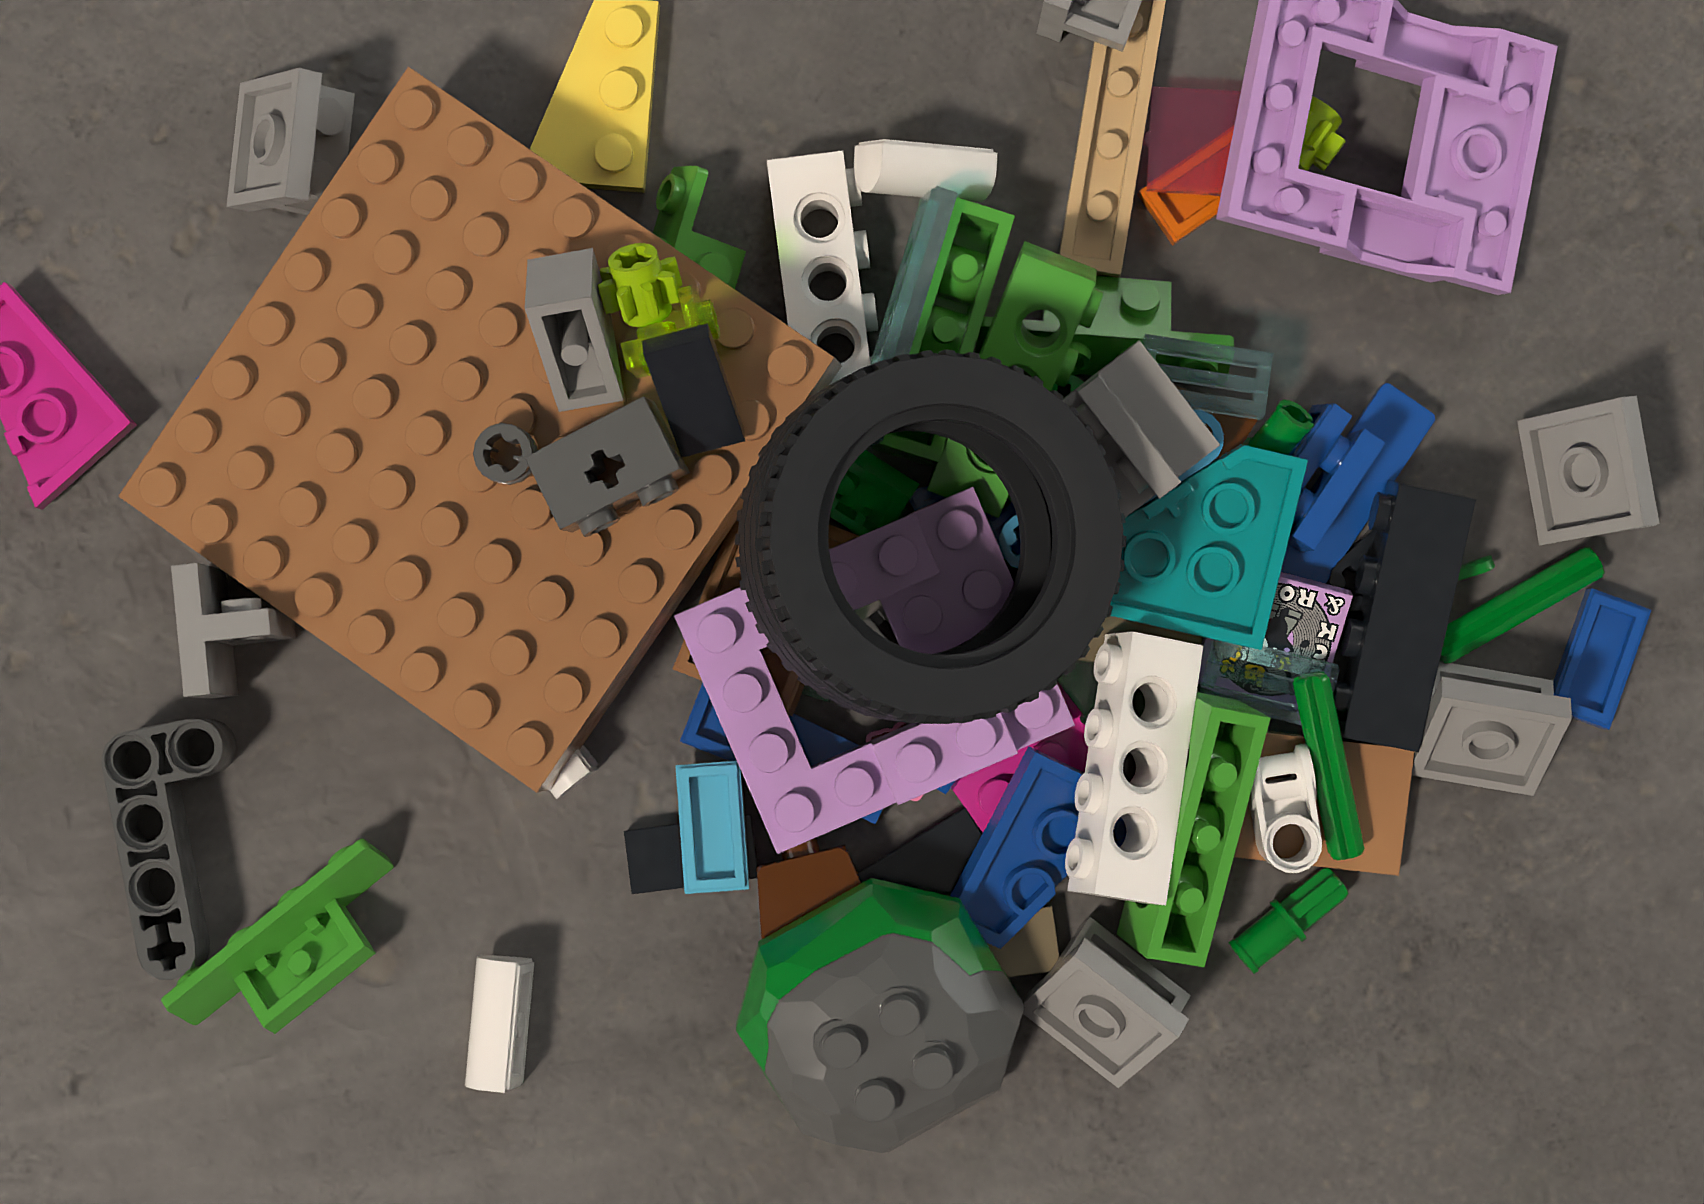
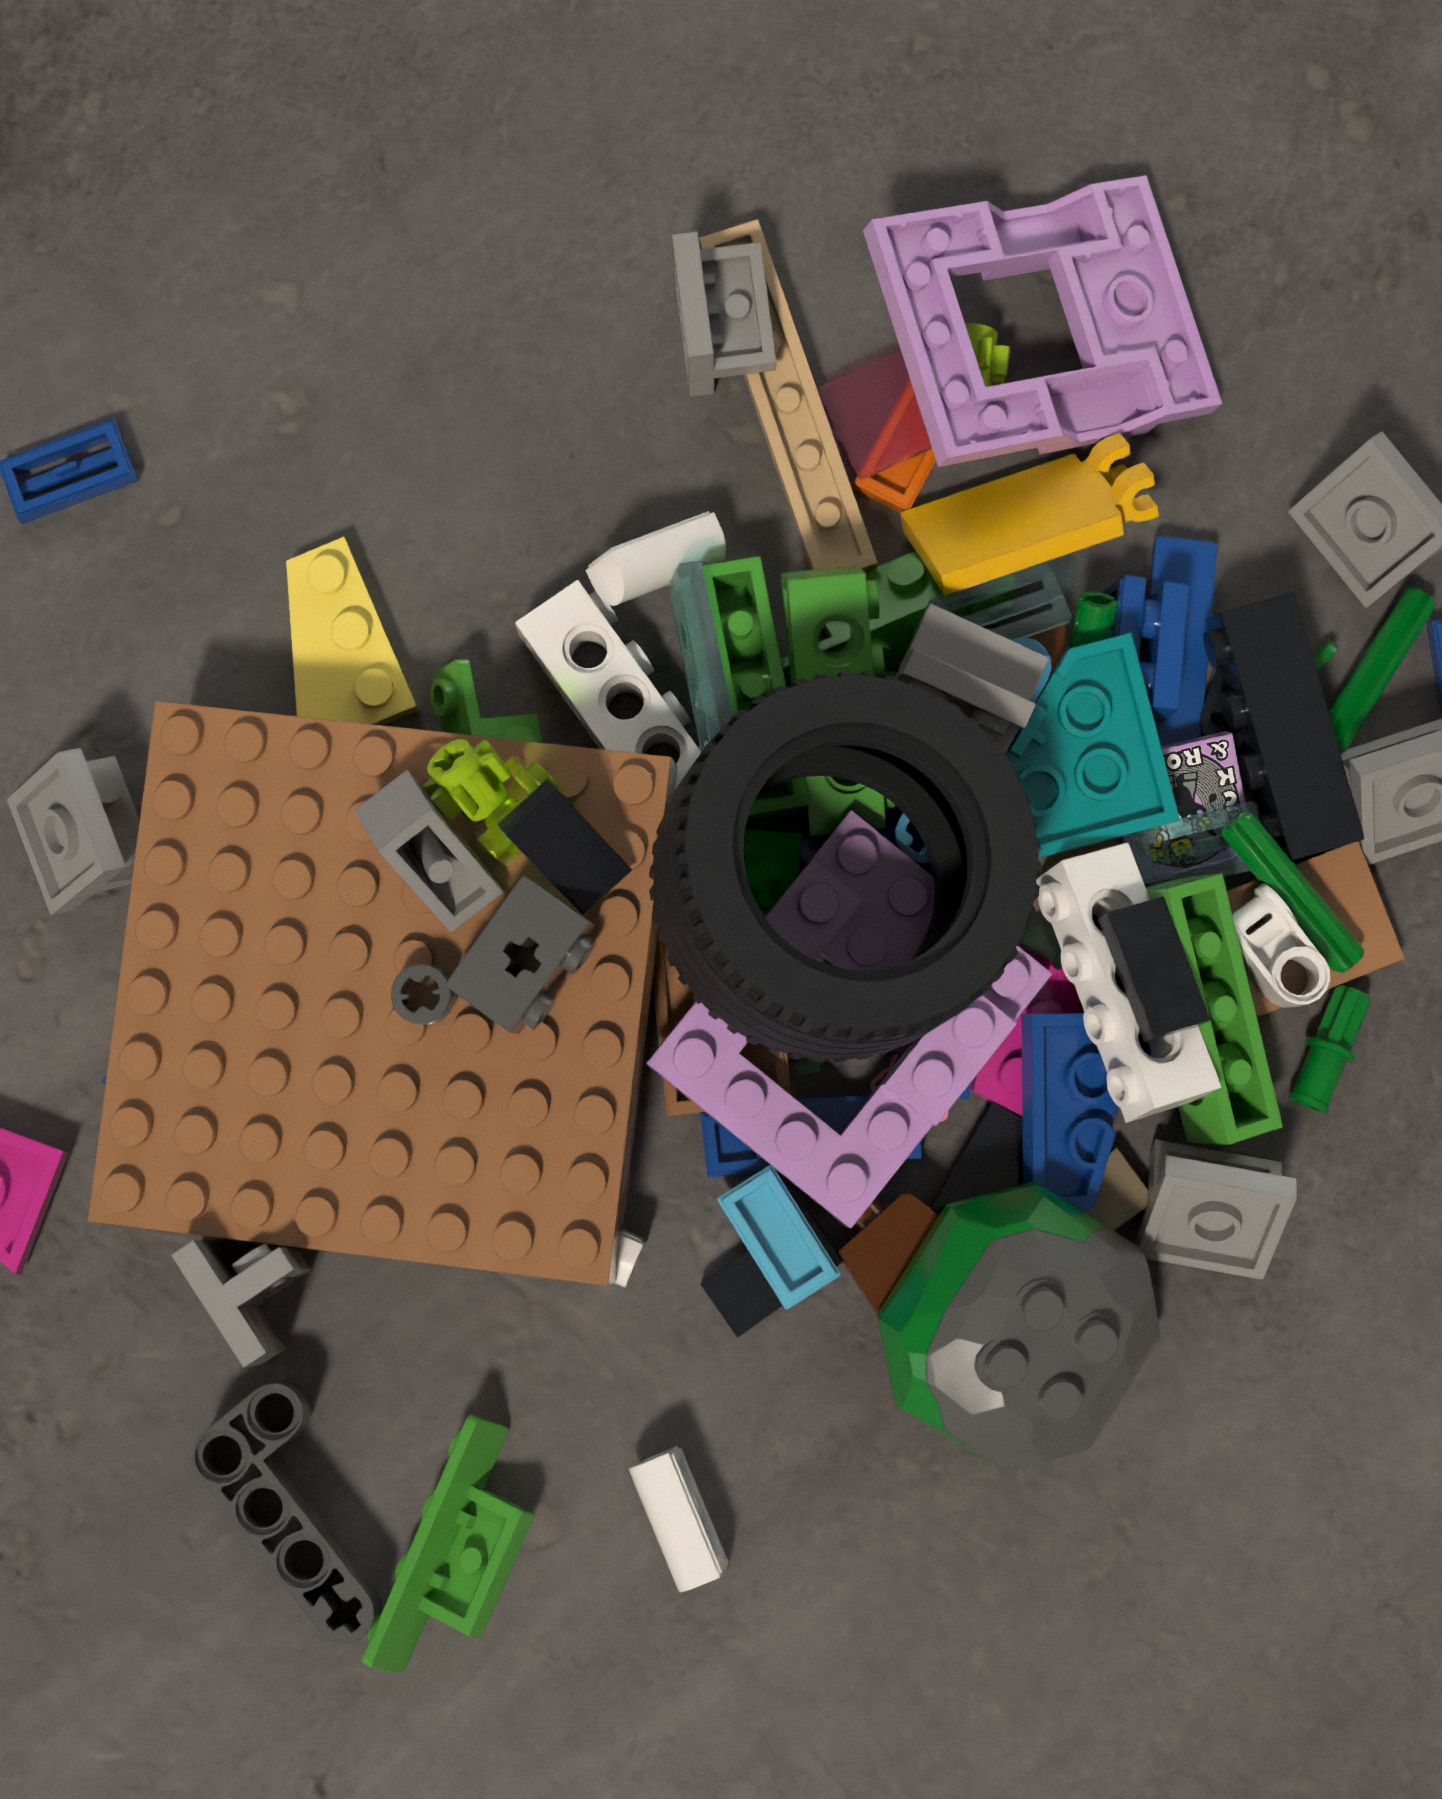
camera: 30 degrees left, 5 degrees down
(1161, 770) = (1154, 969): none -> black tile
(1278, 305) = (1029, 516): none -> yellow tile

